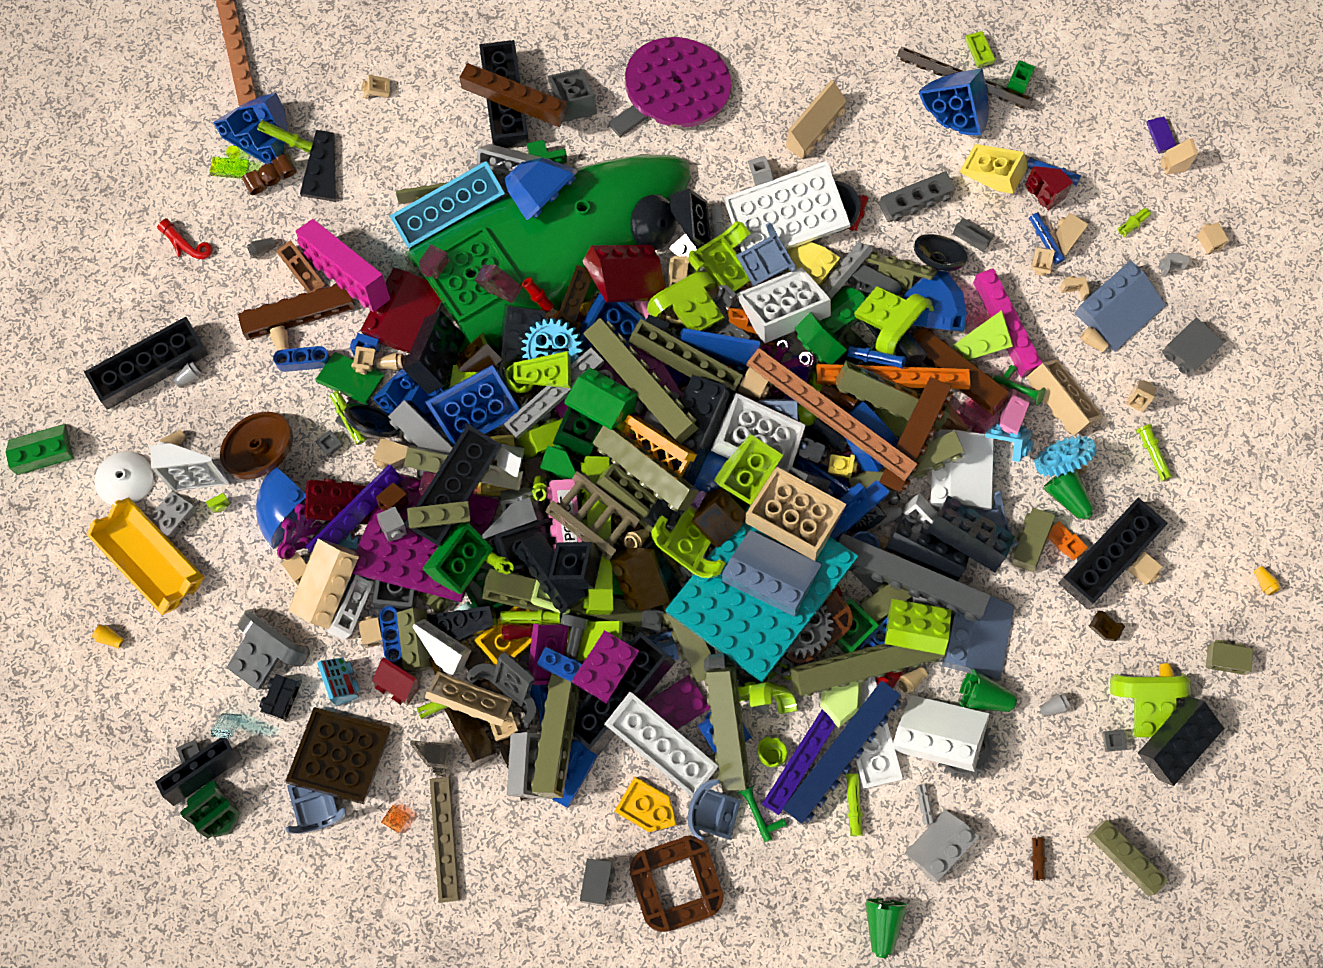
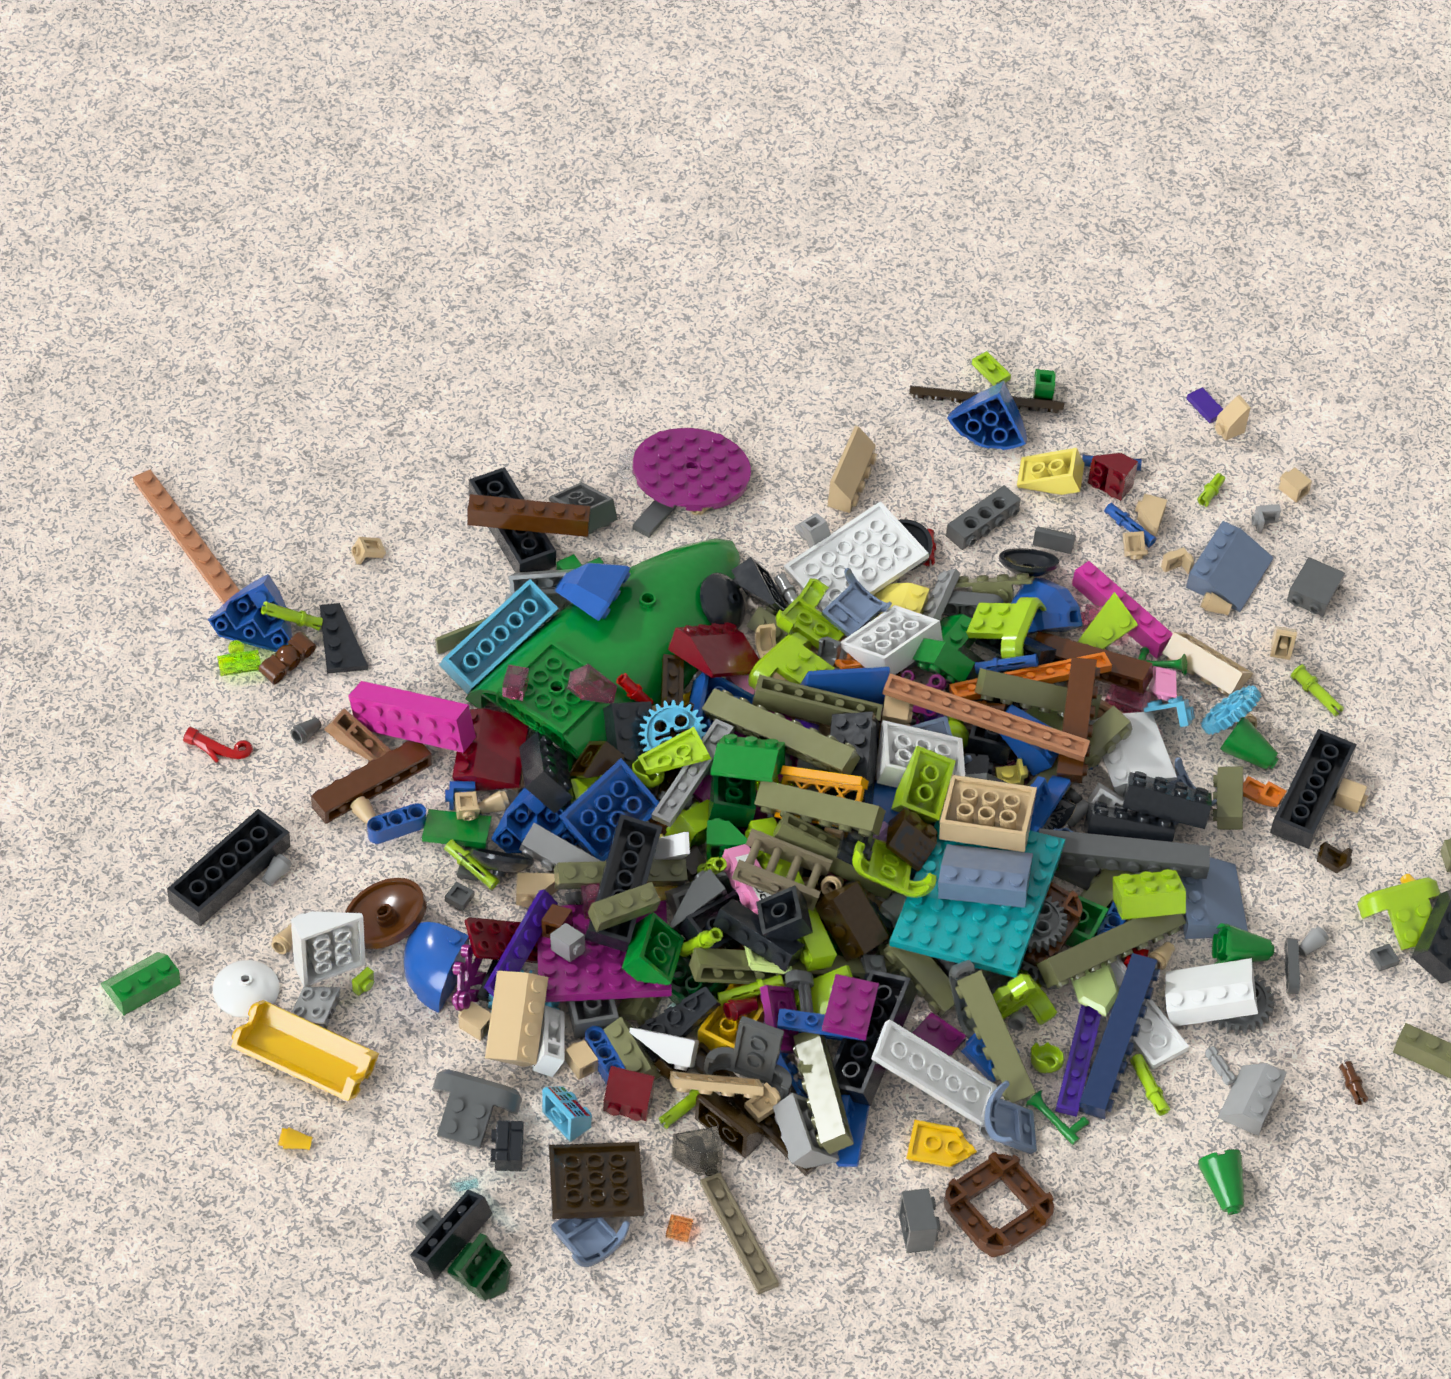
camera: 20 degrees left, 20 degrees down
(1026, 725) = (1292, 968): none -> dark grey beam

